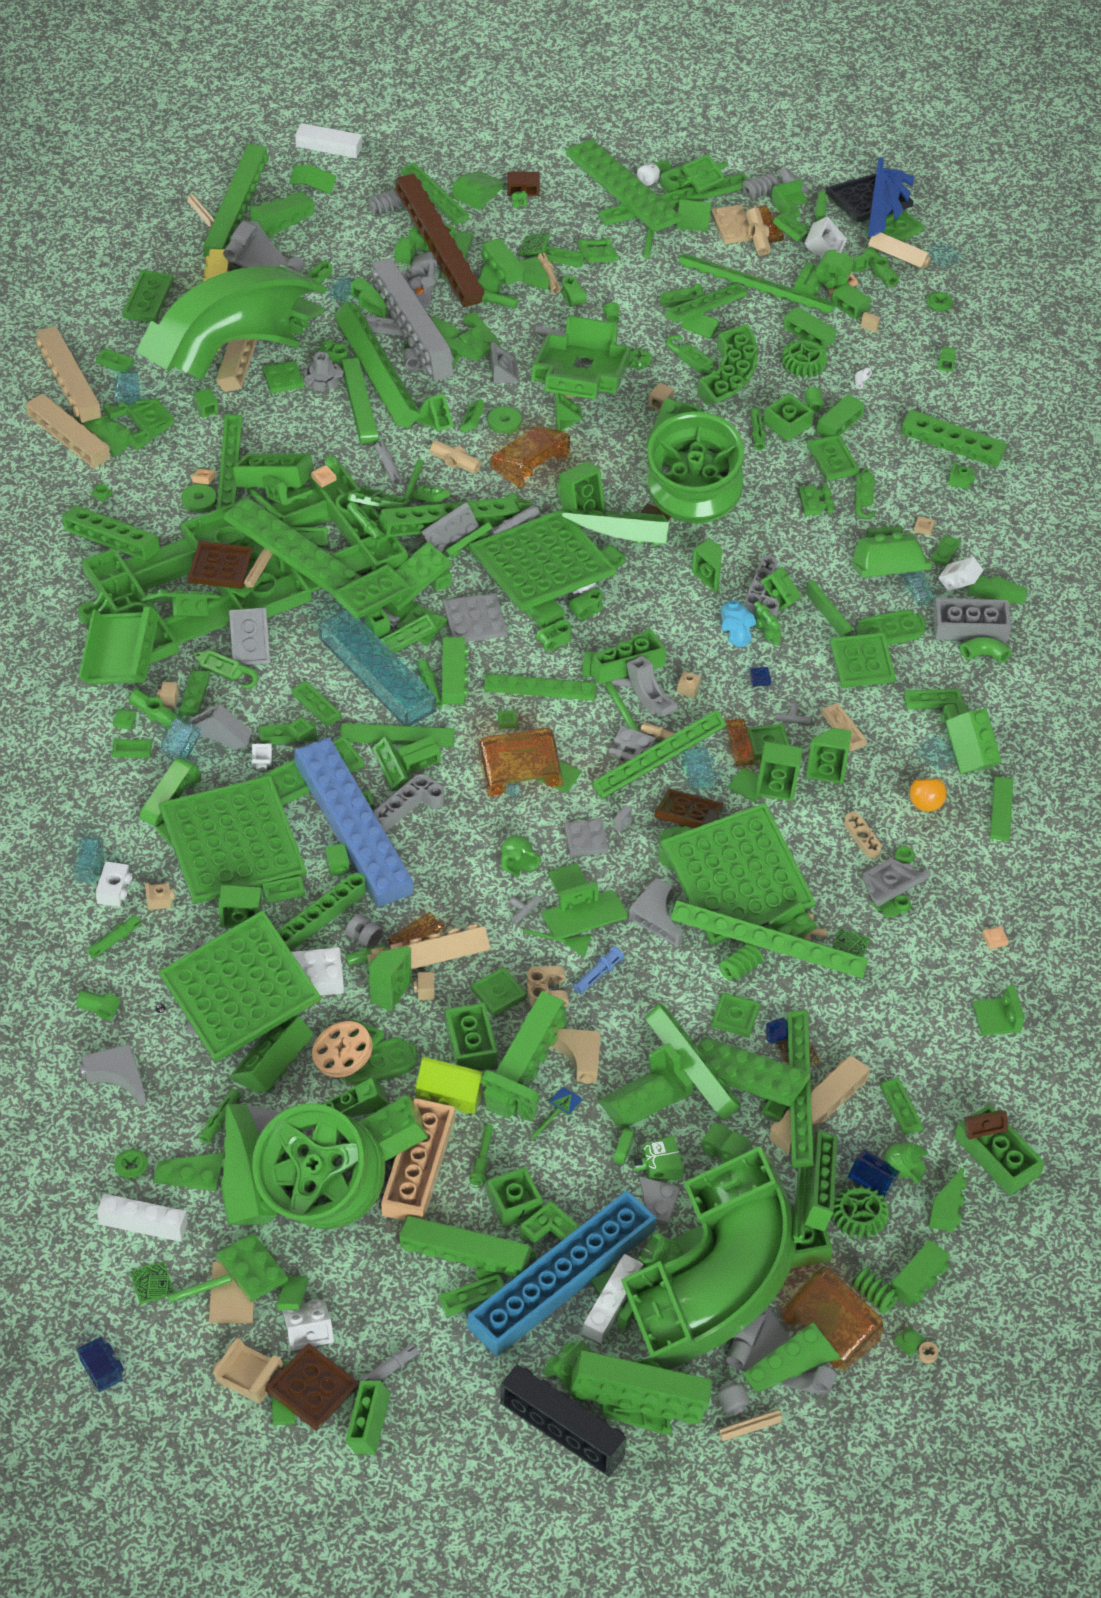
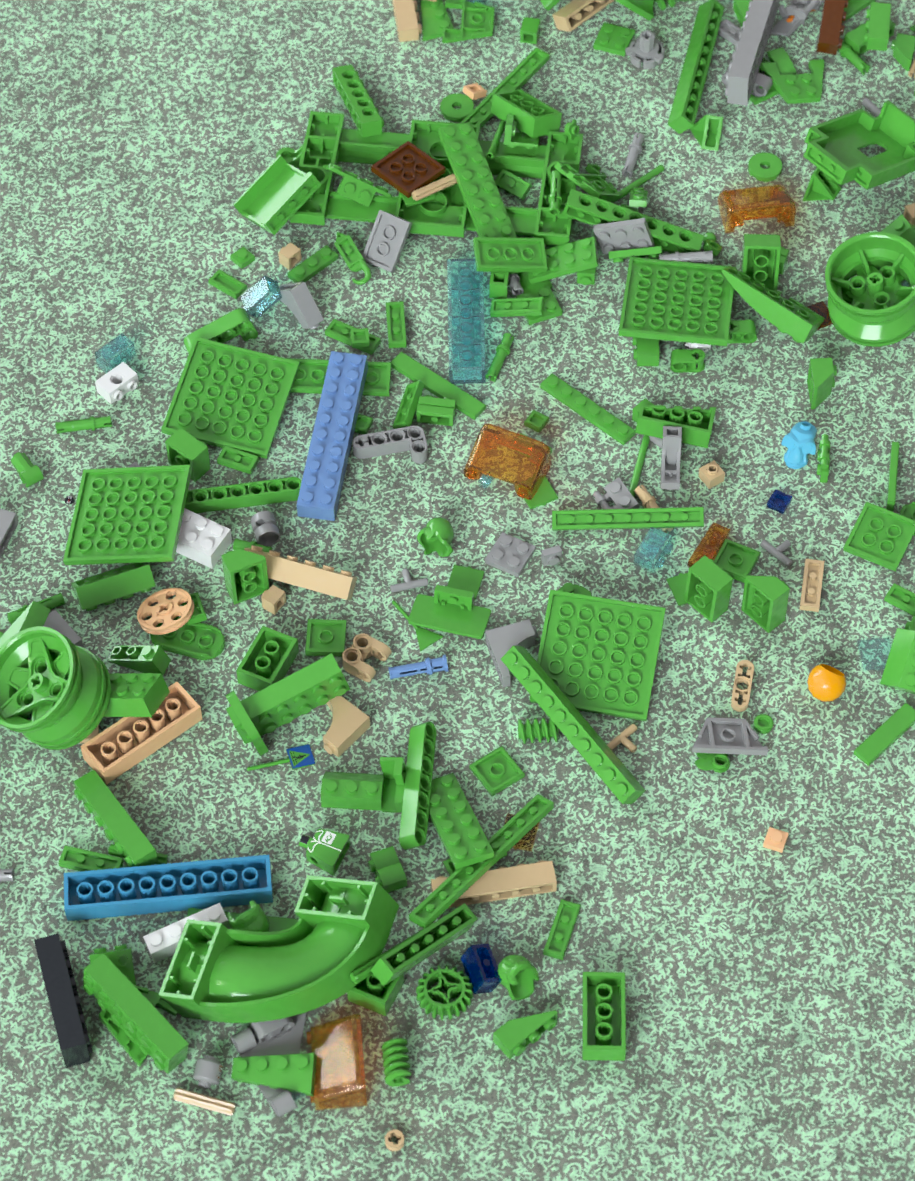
camera: 40 degrees right, 5 degrees up
(101, 492) = (385, 64): bright green plate -> none
(153, 708) = (268, 259): bright green piece -> none
(159, 896) = (141, 411): tan brick -> none
(261, 756) = (315, 344): white bracket -> none
(323, 476) = (555, 137): light nougat plate -> none
(334, 350) = (671, 39): bright green piece -> none
(337, 859) = (296, 459): bright green brick -> none
(359, 400) = (656, 89): bright green beam -> none
(417, 929) = (308, 551): clear orange plate -> none
(449, 1085) = (212, 686): lime slope -> none
(454, 669) = (527, 356): bright green brick -> none
(455, 457) = (692, 177): tan piece -> none
(472, 416) = (734, 152): bright green plate -> none
(475, 617) = (586, 322): light grey plate -> none
(478, 1175) = (190, 764): bright green pin -> none
(503, 365) = (803, 117): light grey slope -> none
(513, 1196) = (186, 806): bright green brick -> none
(548, 1219) = (191, 839): bright green panel -> none
(555, 636) = (639, 372): bright green piece -> none
(624, 1146) = (308, 820): bright green beam -> none
(659, 1199) = (294, 879): light grey wing -> none
(687, 809) = (608, 578): reddish brown plate -> none
(758, 592) = (850, 425): light grey beam -> none
(777, 1030) = (515, 803): clear blue plate -> none
(781, 588) = (863, 435): bright green brick -> none
(793, 921) = (610, 723): bright green bracket -> none
(851, 942) = (647, 770): bright green piece -> none
(909, 1341) = (388, 1120): bright green plate -> none
(920, 1273) = (445, 1073): bright green brick -> none
(986, 1124) = (600, 986): reddish brown plate -> none
(1000, 1014) = (714, 905): bright green bracket -> none

